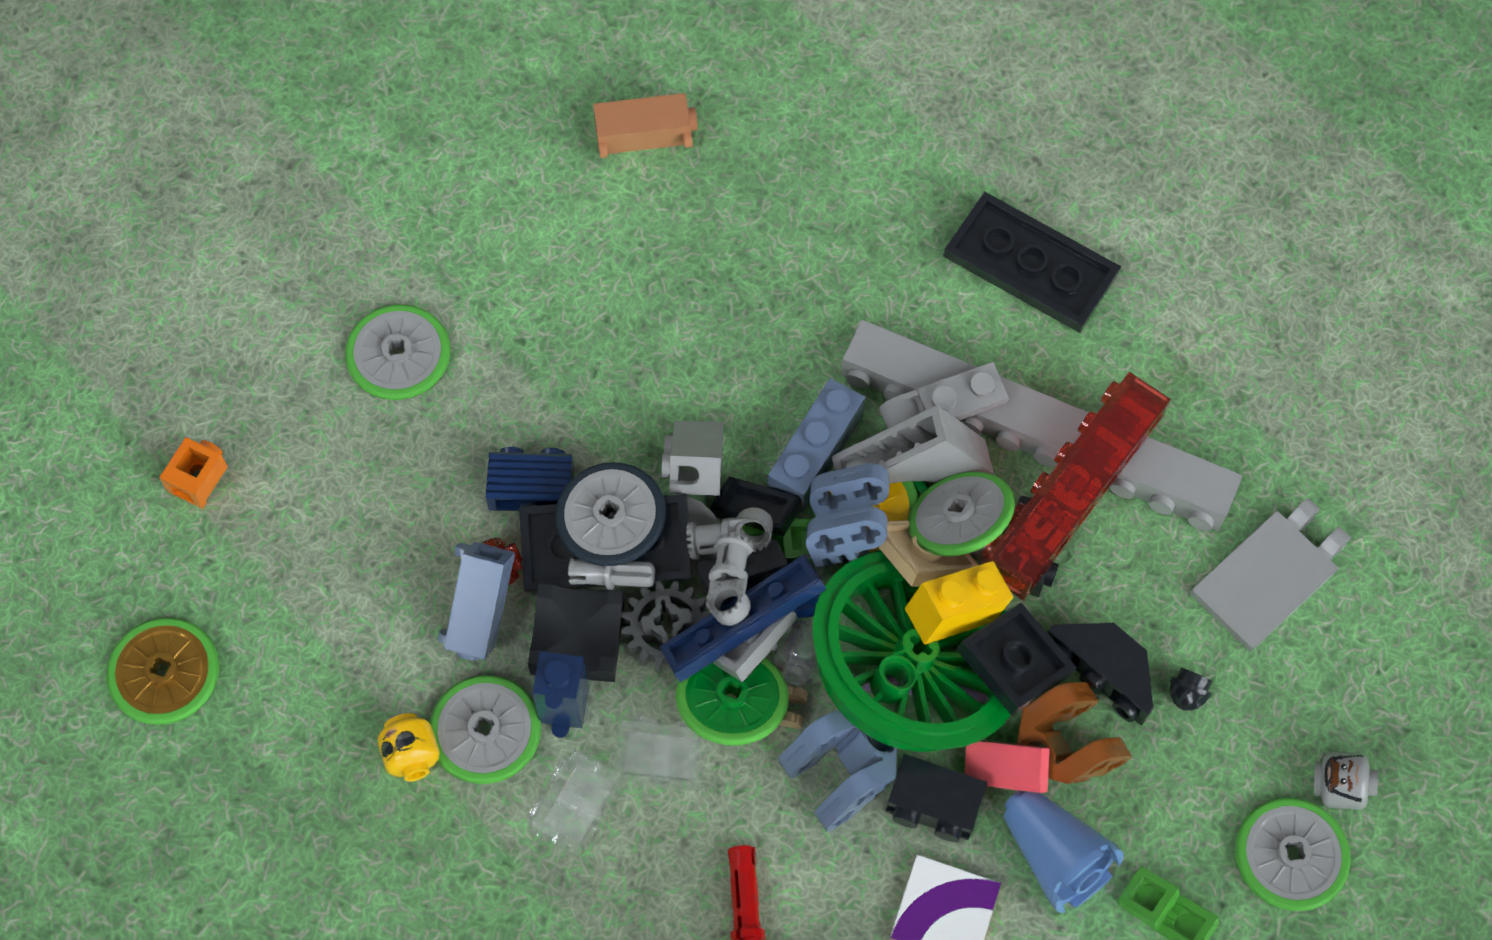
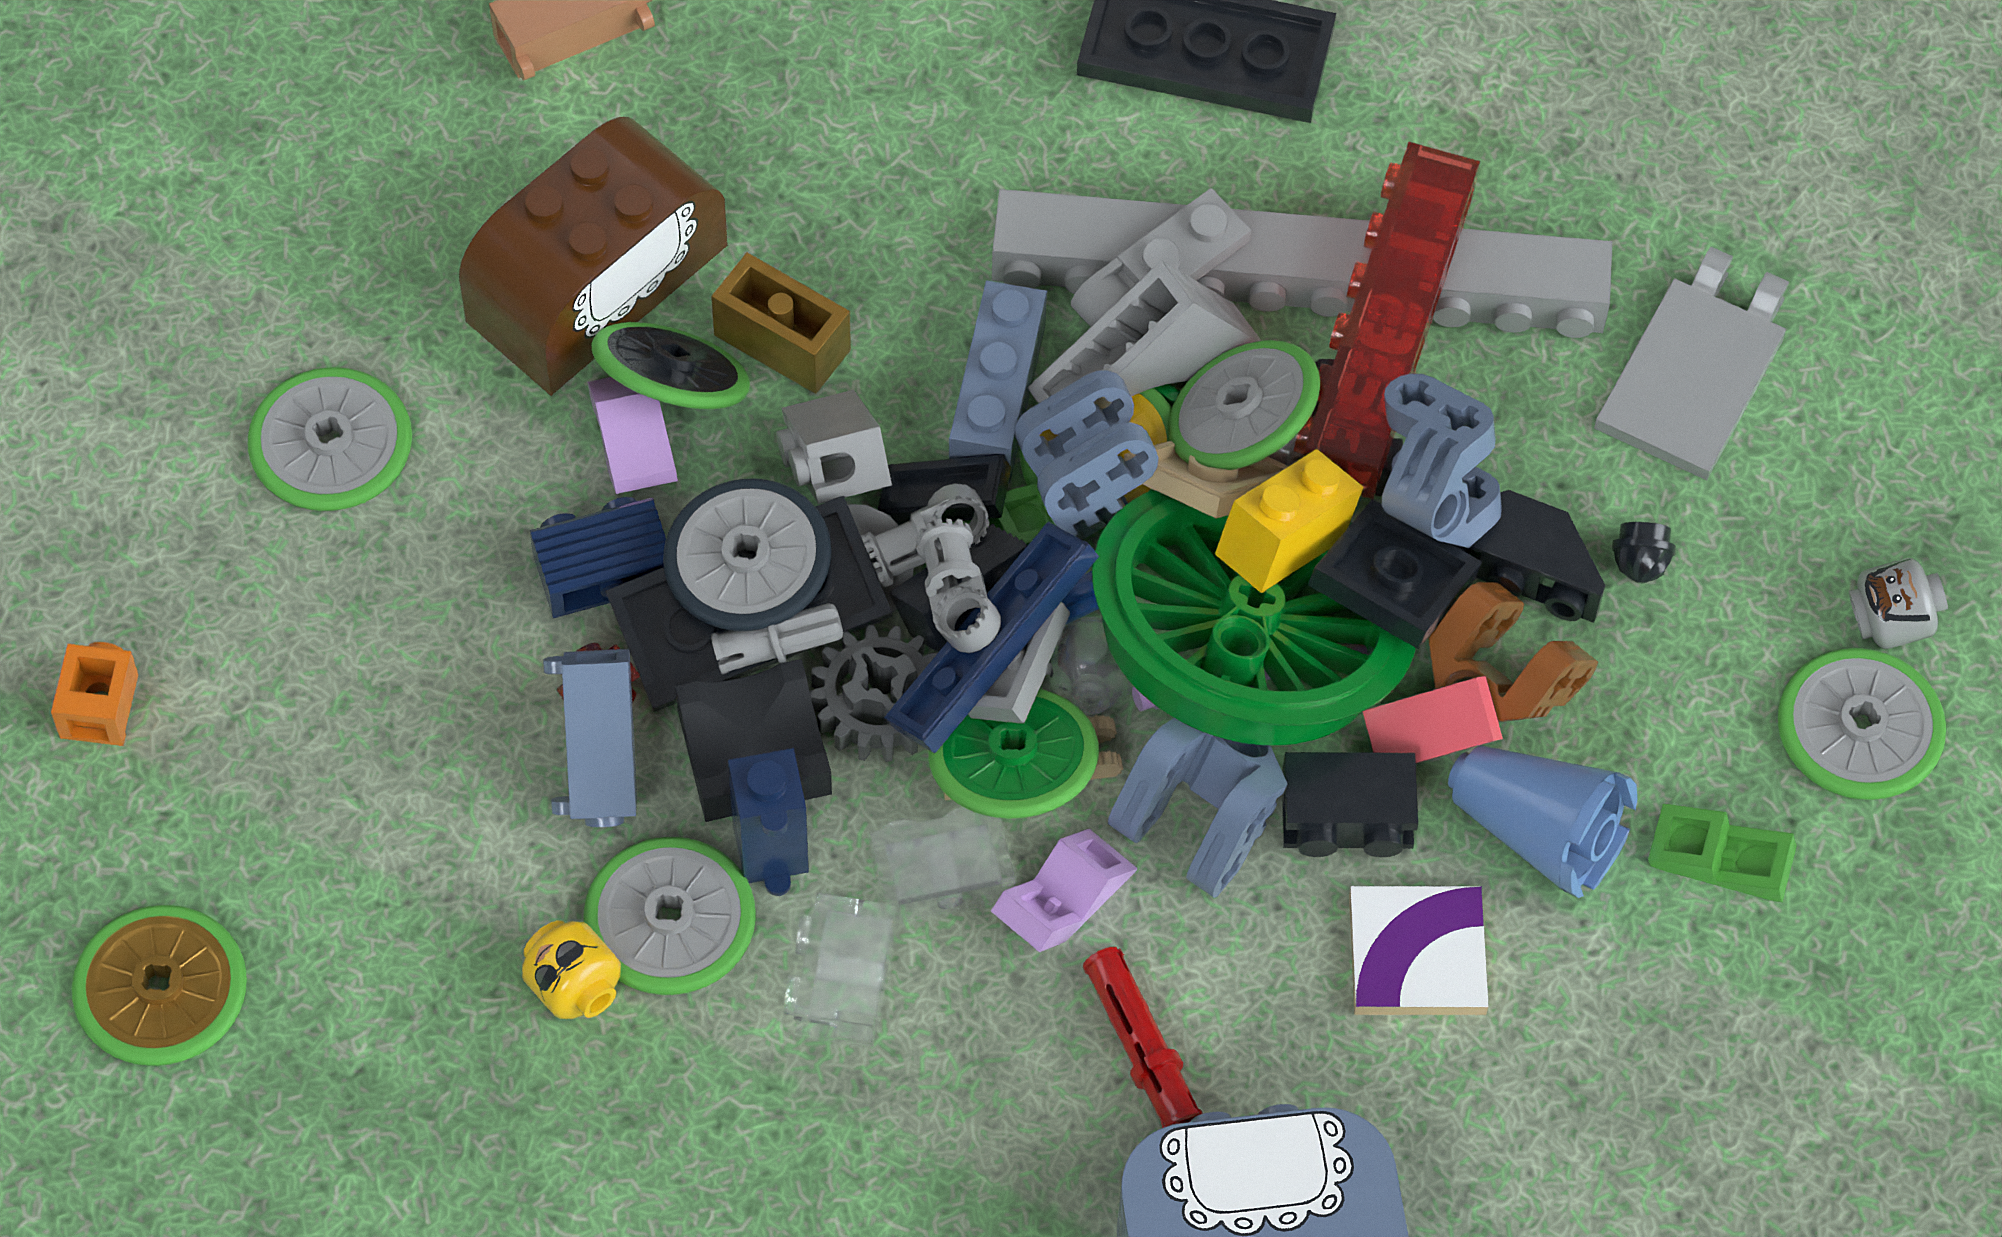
camera: 20 degrees left, 5 degrees down
(579, 405) = (632, 436): none -> lavender slope
(593, 281) = (588, 249): none -> reddish brown brick
(616, 371) = (670, 365): none -> wheel
(695, 364) = (781, 322): none -> pearl gold brick
(734, 797) = (1065, 892): none -> lavender slope
(1065, 600) = (1435, 472): none -> sand blue piece

